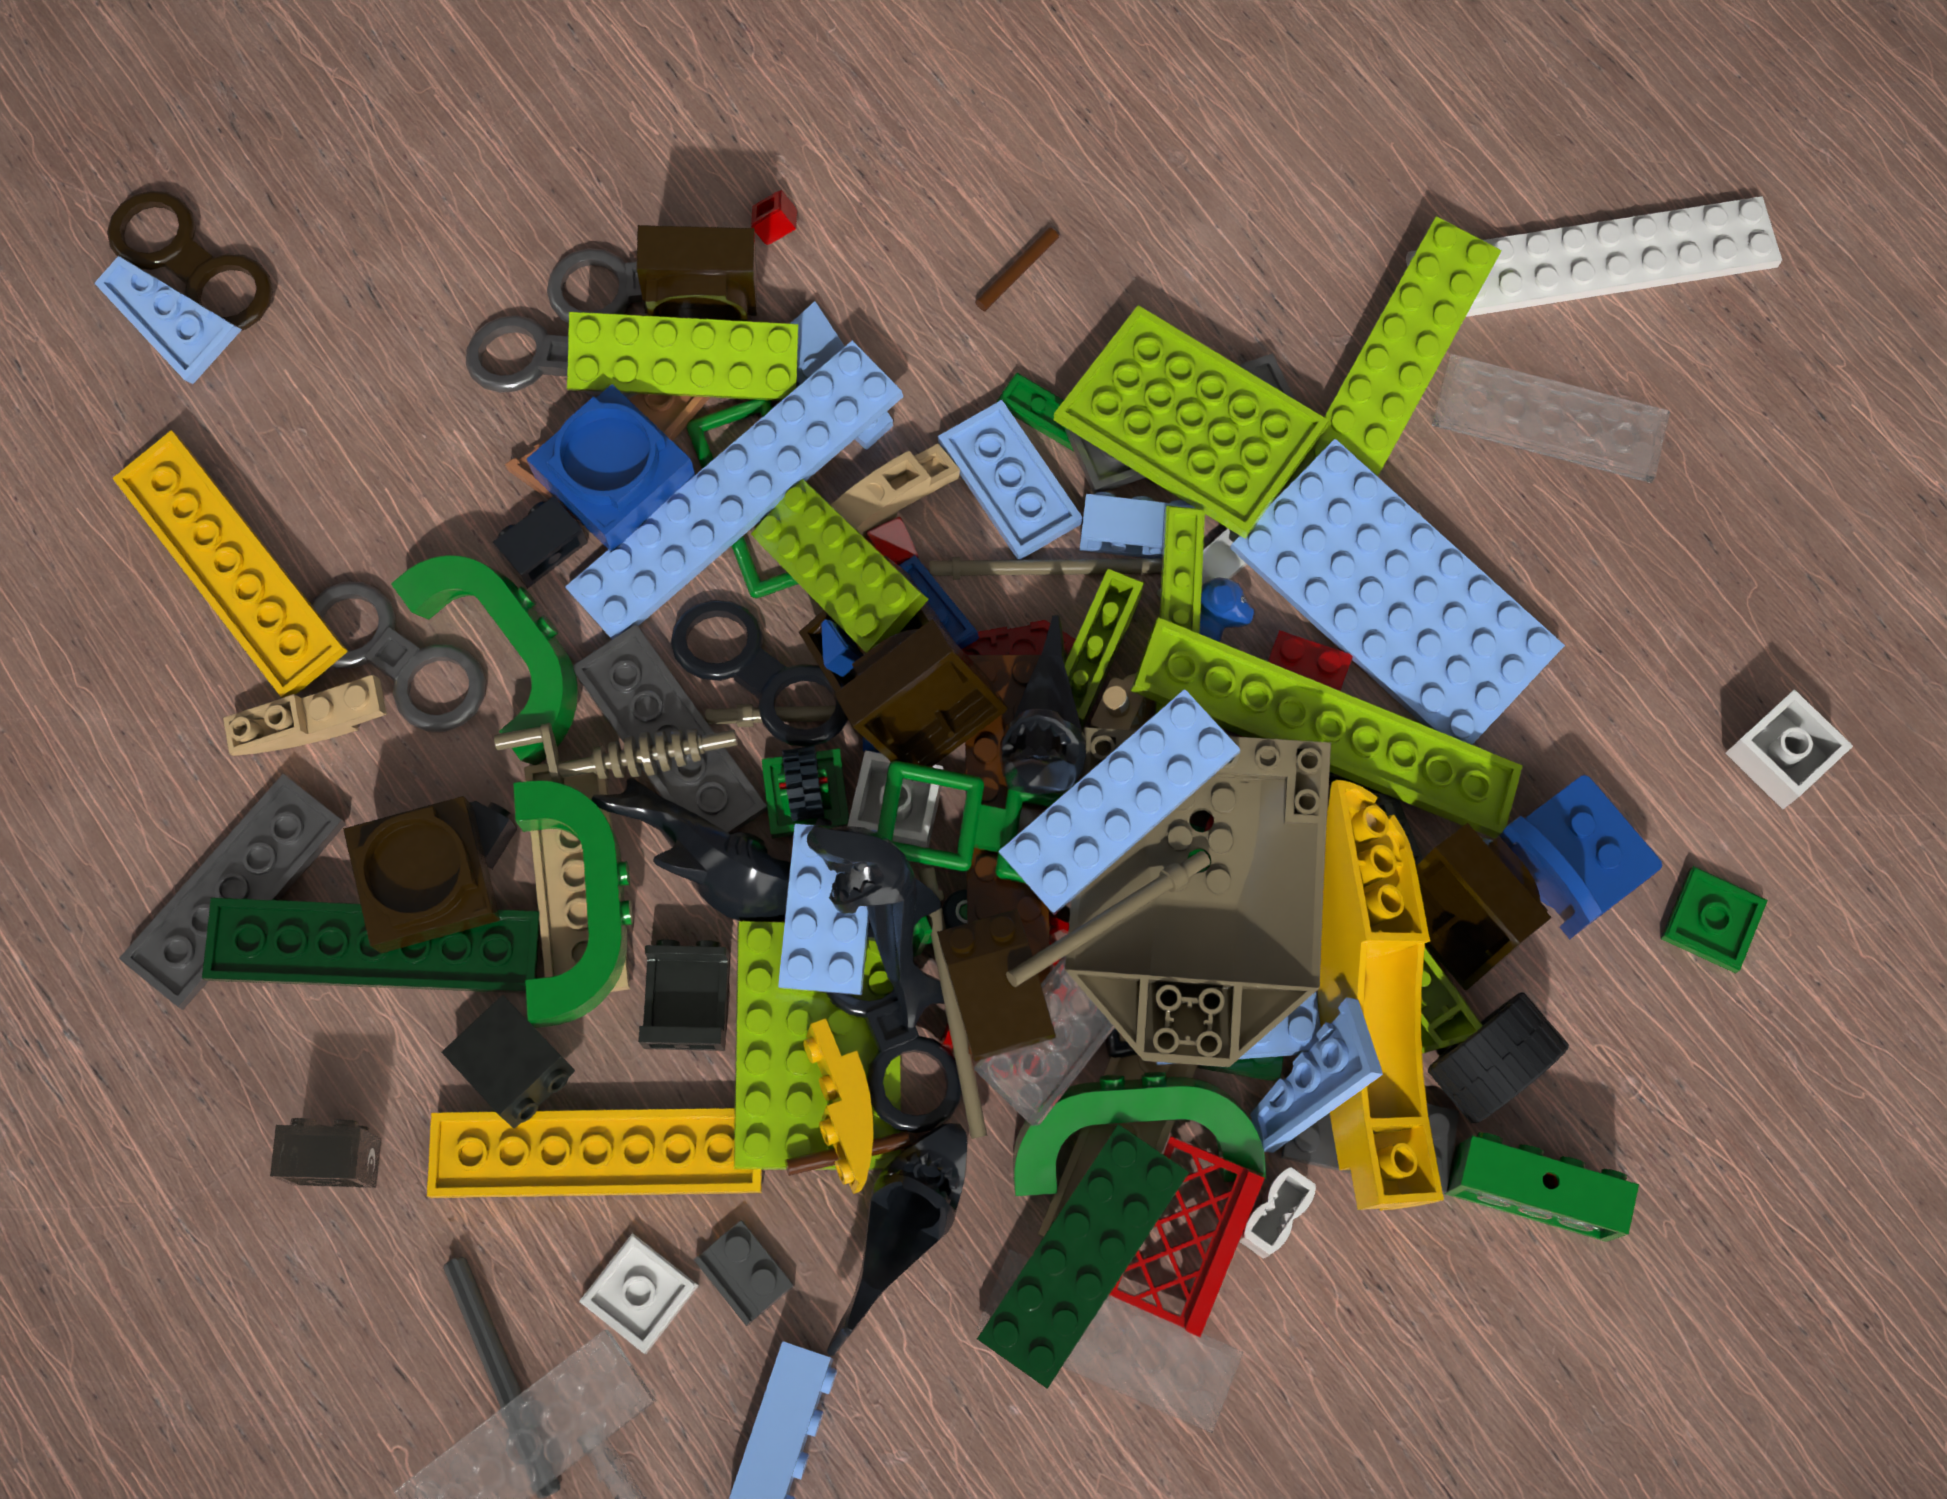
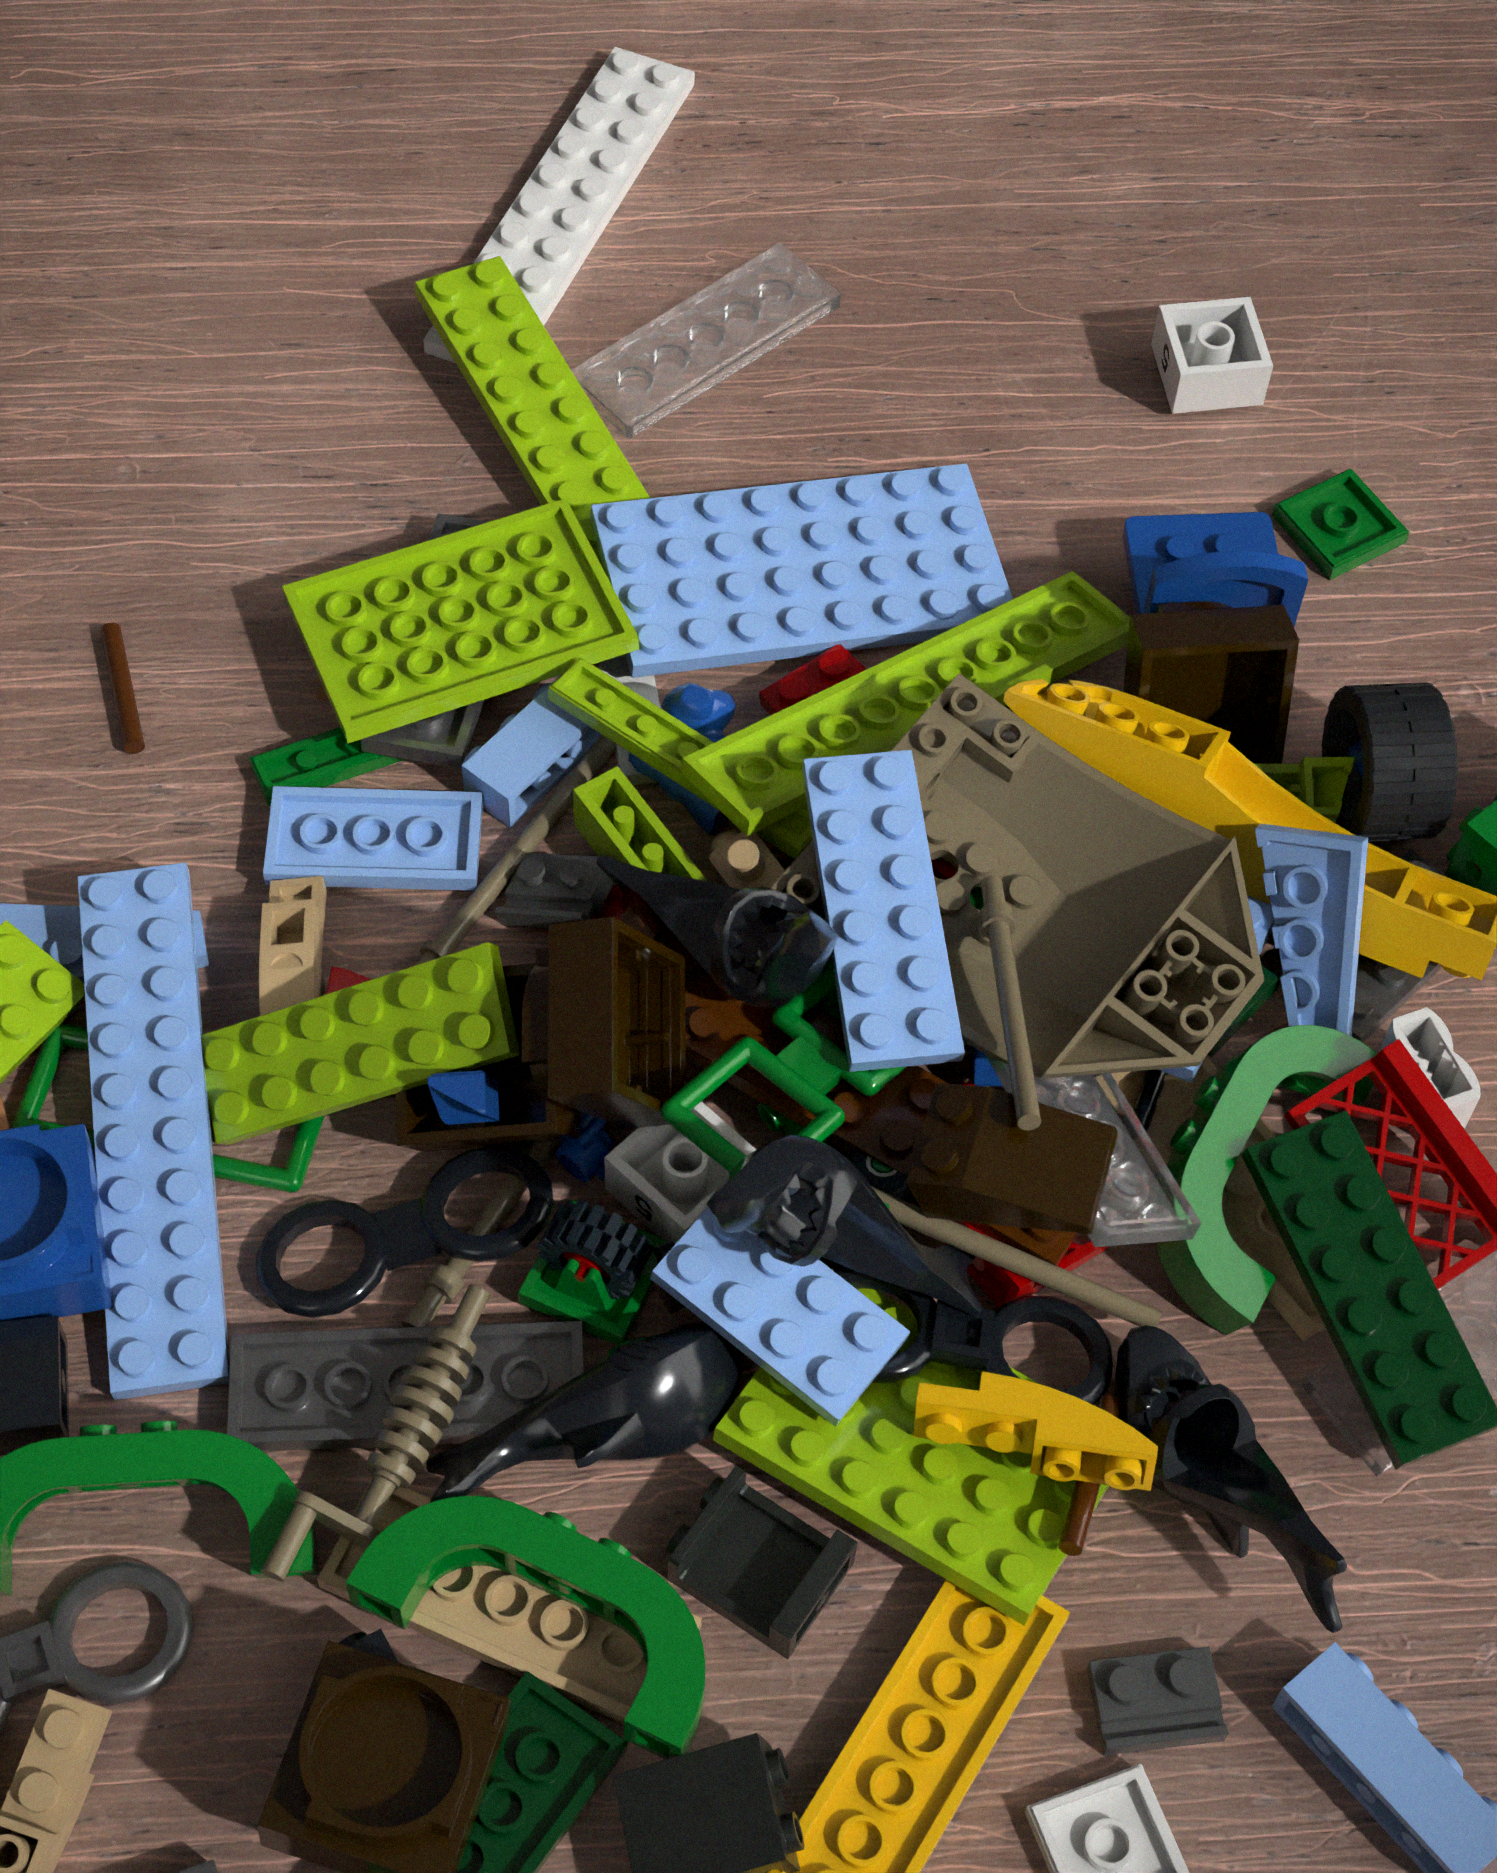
camera: 60 degrees left, 15 degrees down
(1038, 601) = (554, 890): none -> dark grey plate

